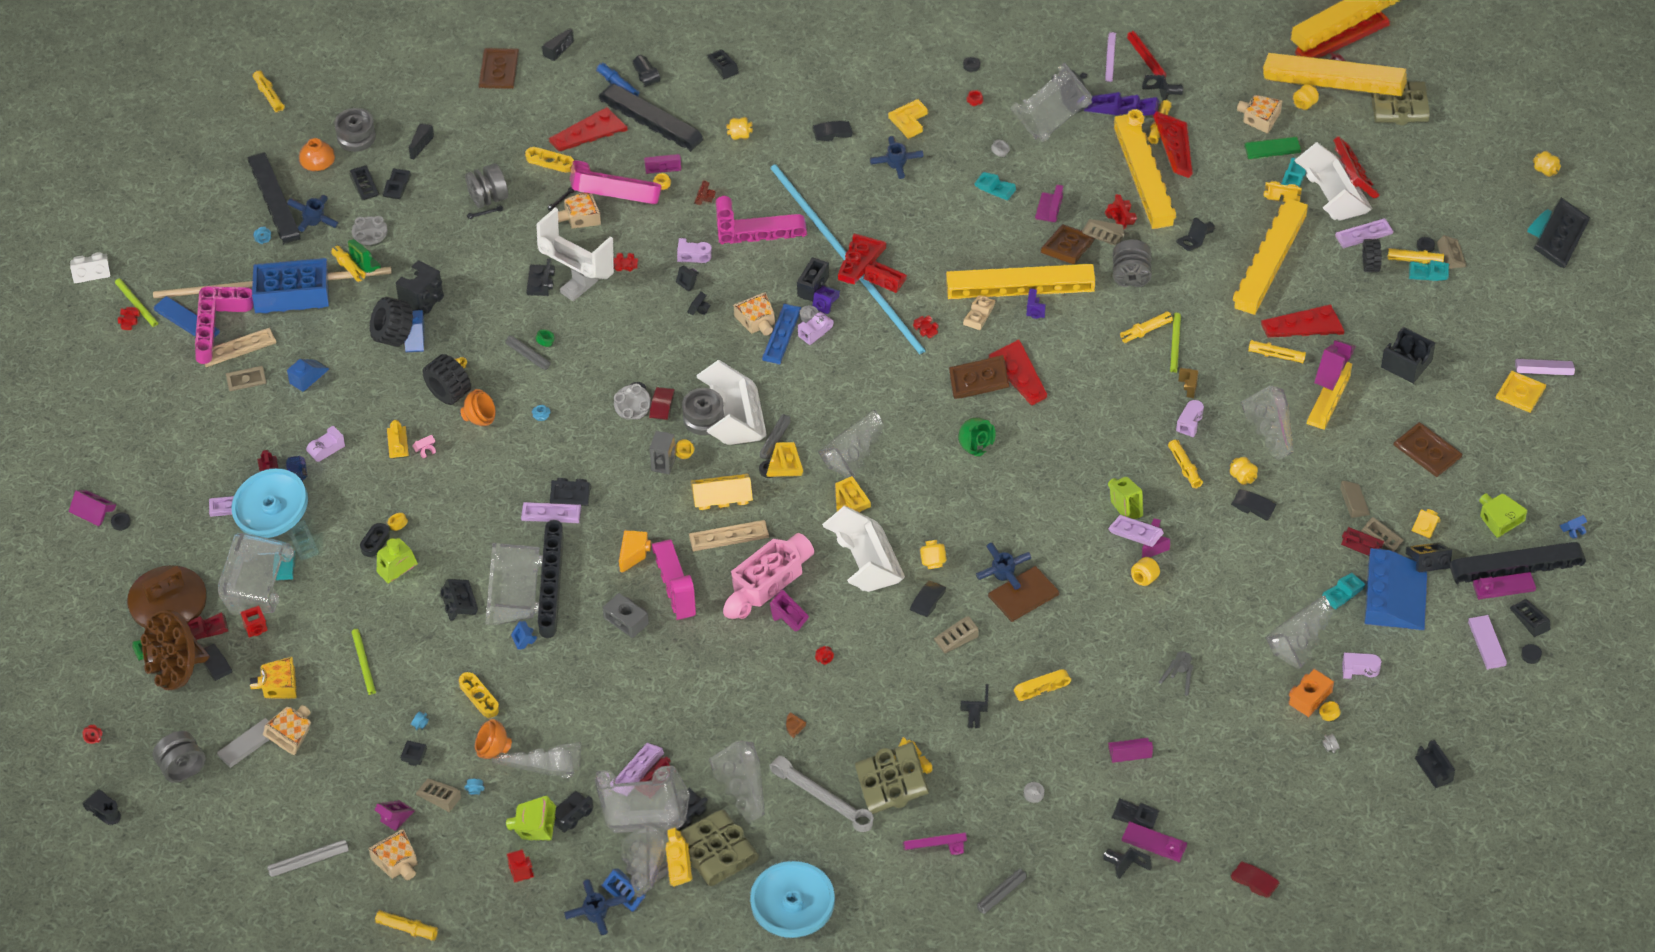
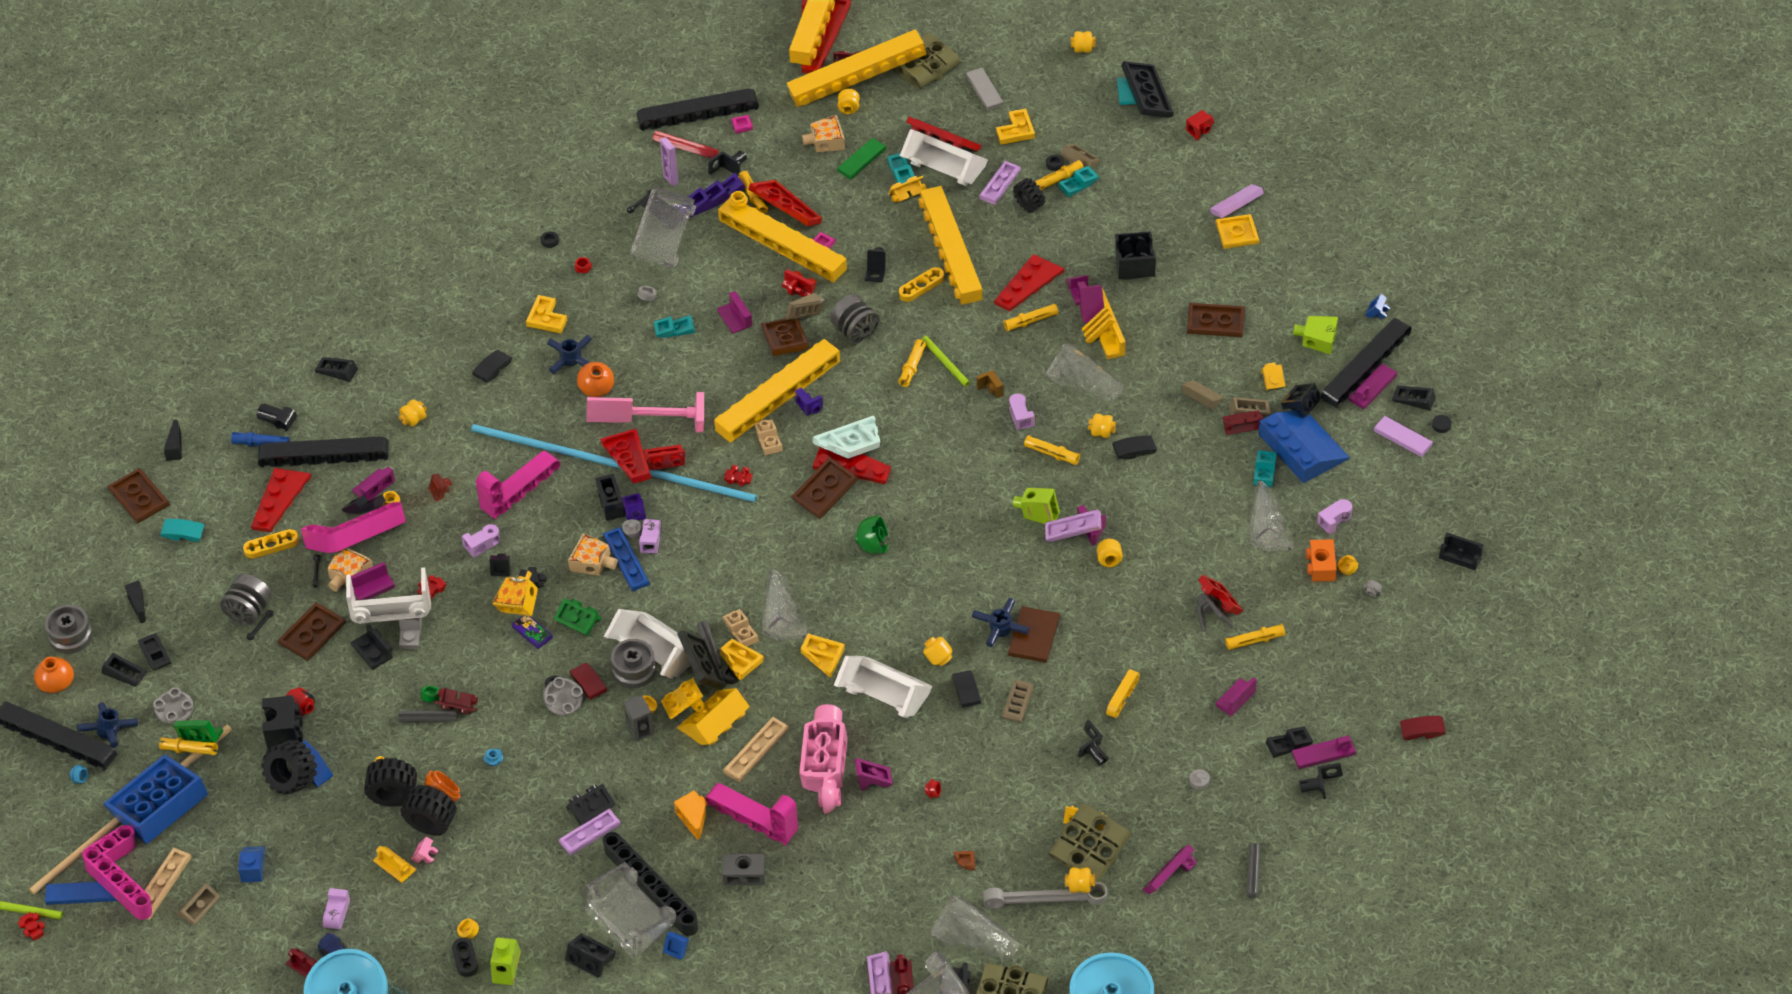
camera: 40 degrees left, 0 degrees up
(451, 416) = (428, 810): none -> black tyre
(453, 283) = (304, 698): none -> red head
(502, 110) = (180, 528): none -> teal slope
(511, 239) = (311, 631): none -> reddish brown tile
(550, 351) = (449, 699): none -> dark red hinge
(586, 231) = (372, 582): none -> magenta panel
(637, 172) = (362, 505): none -> black slope
(662, 341) = (532, 631): none -> tile
(673, 306) = (517, 595): none -> yellow torso
(702, 350) = (576, 617): none -> green bracket
(716, 462) = (686, 695): none -> yellow hinge
(749, 440) = (701, 659): none -> pearl dark grey tile
(810, 440) = (740, 628): none -> tan slope
(852, 798) = (1080, 880): none -> yellow piece
(886, 221) = (621, 410): none -> bright pink piece
(895, 192) = (592, 384): none -> orange piece
(1037, 353) = (851, 438): none -> light aqua wing
(1175, 192) = (824, 240): none -> dark pink tile
(1182, 33) = (696, 109): none -> black beam
(1195, 715) = (1263, 634): none -> yellow pin
(1201, 661) = (1219, 592): none -> red plate
(1206, 65) = (741, 124): none -> dark pink tile
(1231, 276) = (923, 278): none -> yellow beam
(1321, 390) = (1098, 324): none -> yellow tile
(1421, 202) = (1019, 130): none -> yellow plate
(1428, 153) = (984, 89): none -> light grey tile
(1577, 286) = (1199, 124): none -> red brick

